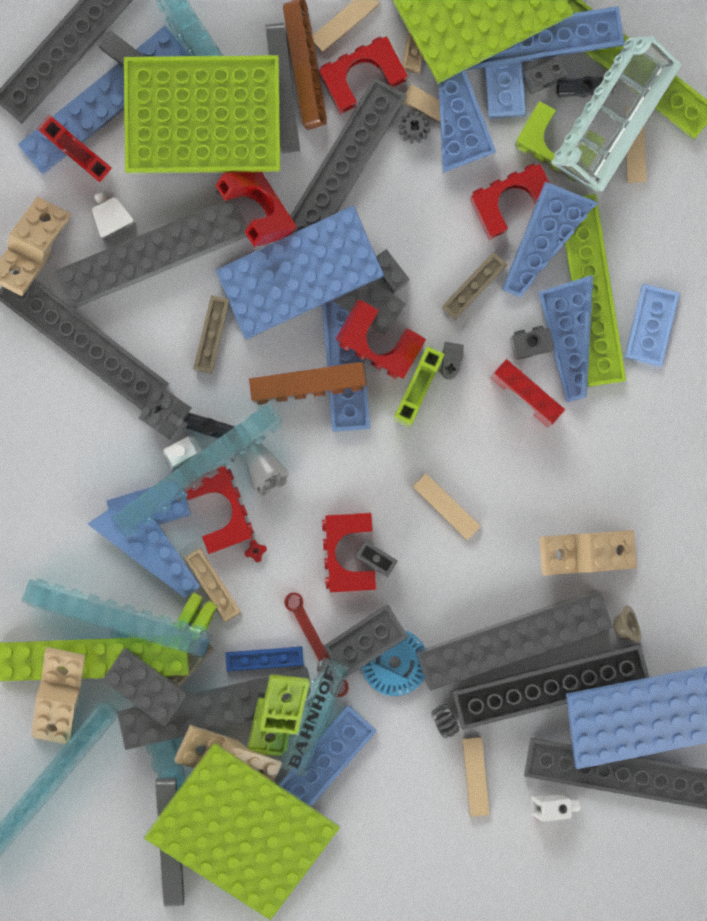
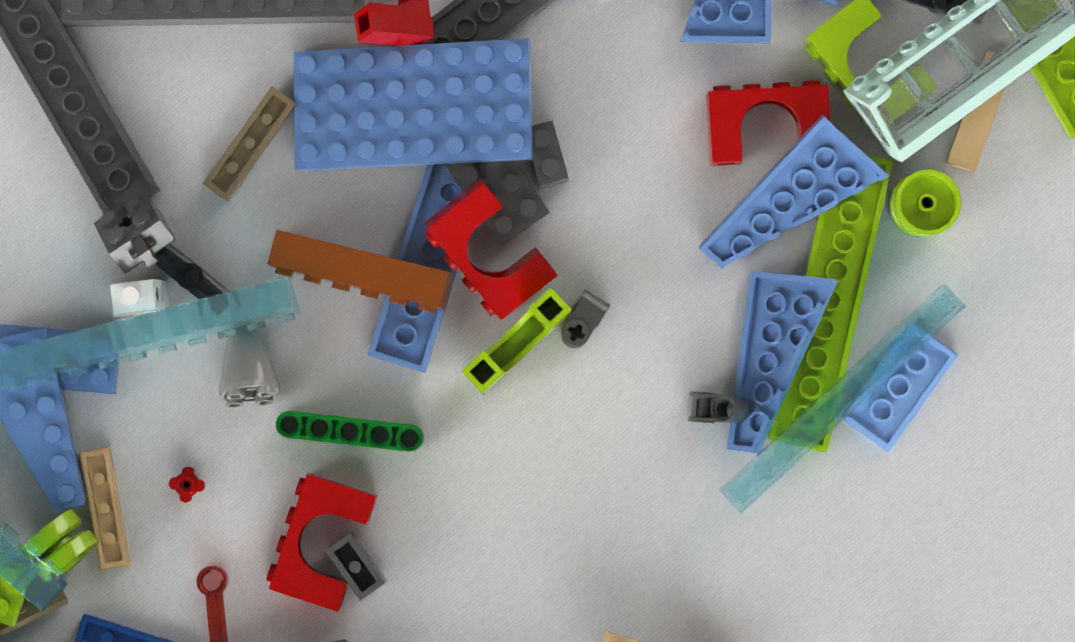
camera: 30 degrees right, 0 degrees up
(237, 529) = (174, 440): red arch -> none
(332, 487) = (336, 425): none -> green beam
(446, 506) = (490, 531): tan tile -> none
(474, 286) = (660, 225): dark tan plate -> none
(543, 342) = (729, 345): dark grey brick -> none
(544, 406) = (676, 417): red arch -> none
(548, 380) = (713, 408): none -> dark grey piece
(623, 344) = (842, 398): none -> clear light blue brick
(625, 200) = (932, 187): none -> lime wheel

